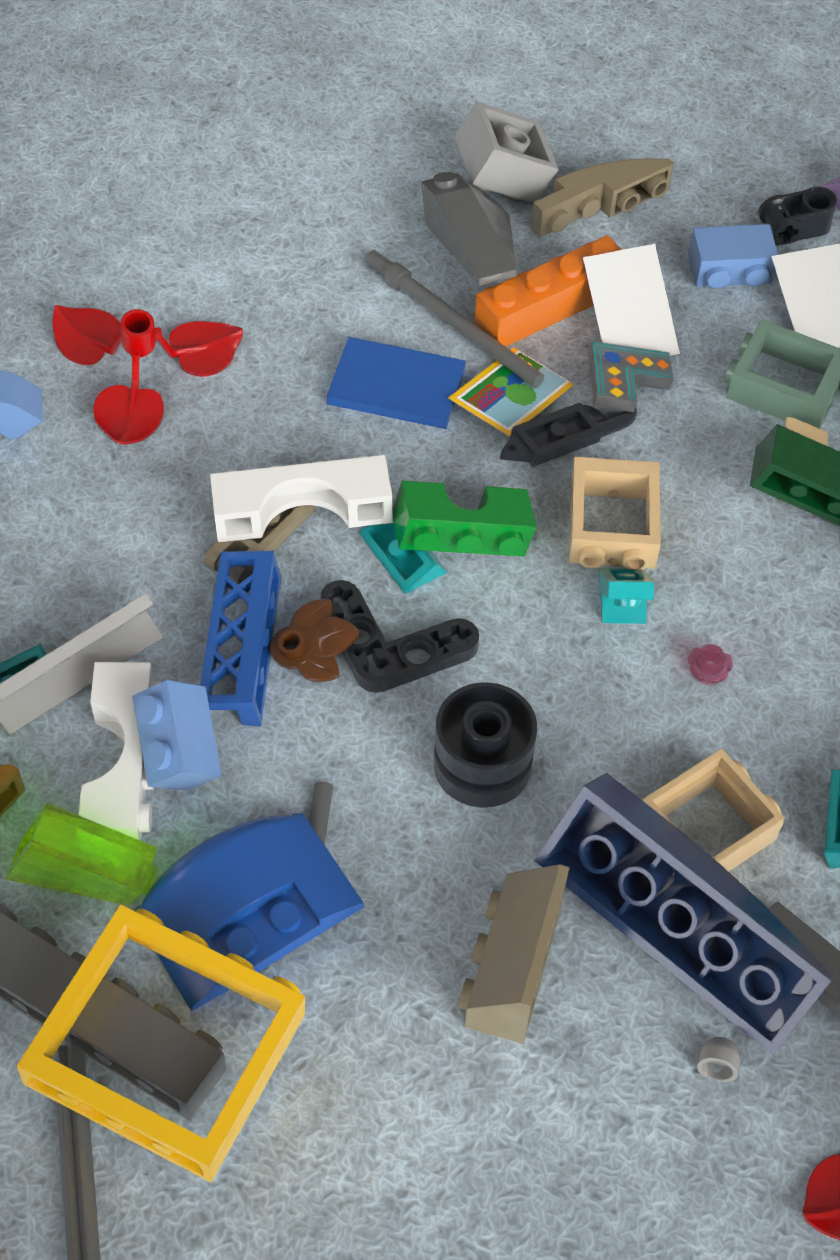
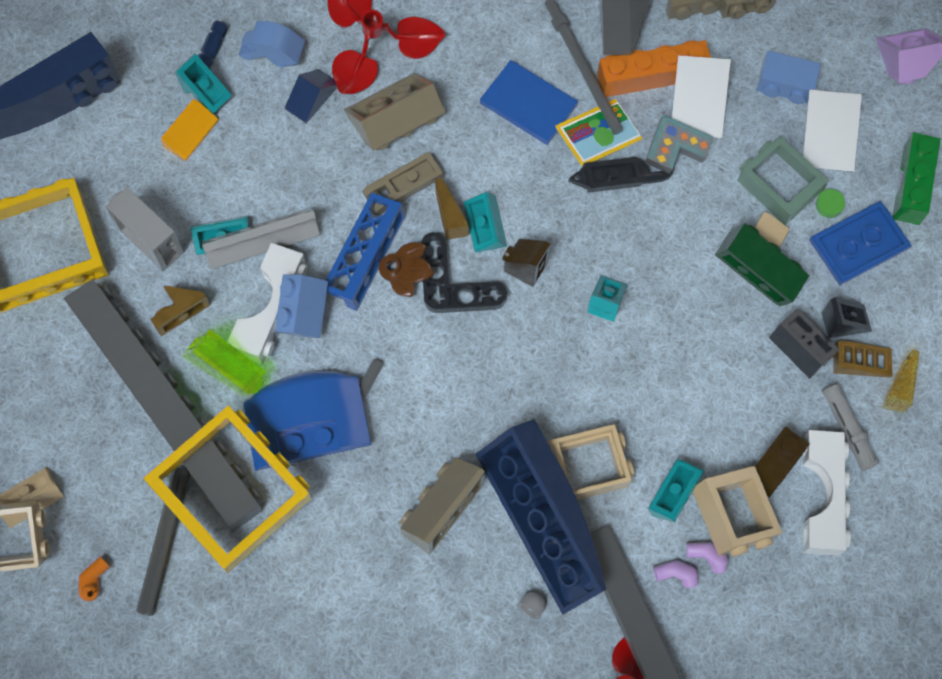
camera: 20 degrees right, 15 degrees up
(73, 459) = (310, 94): none -> dark blue slope
(212, 441) = (395, 111): none -> dark tan slope
(251, 498) = (399, 163): white arch -> none
(349, 549) = (452, 218): none -> pearl gold slope
(431, 522) = (504, 216): green arch -> none
(484, 744) = (476, 372): black wheel -> none
(488, 572) = (526, 260): none -> dark brown slope
(617, 480) = (635, 219): tan window -> none
(708, 673) = (638, 370): clear pink plate -> none
(802, 214) = (846, 59): black piece -> none

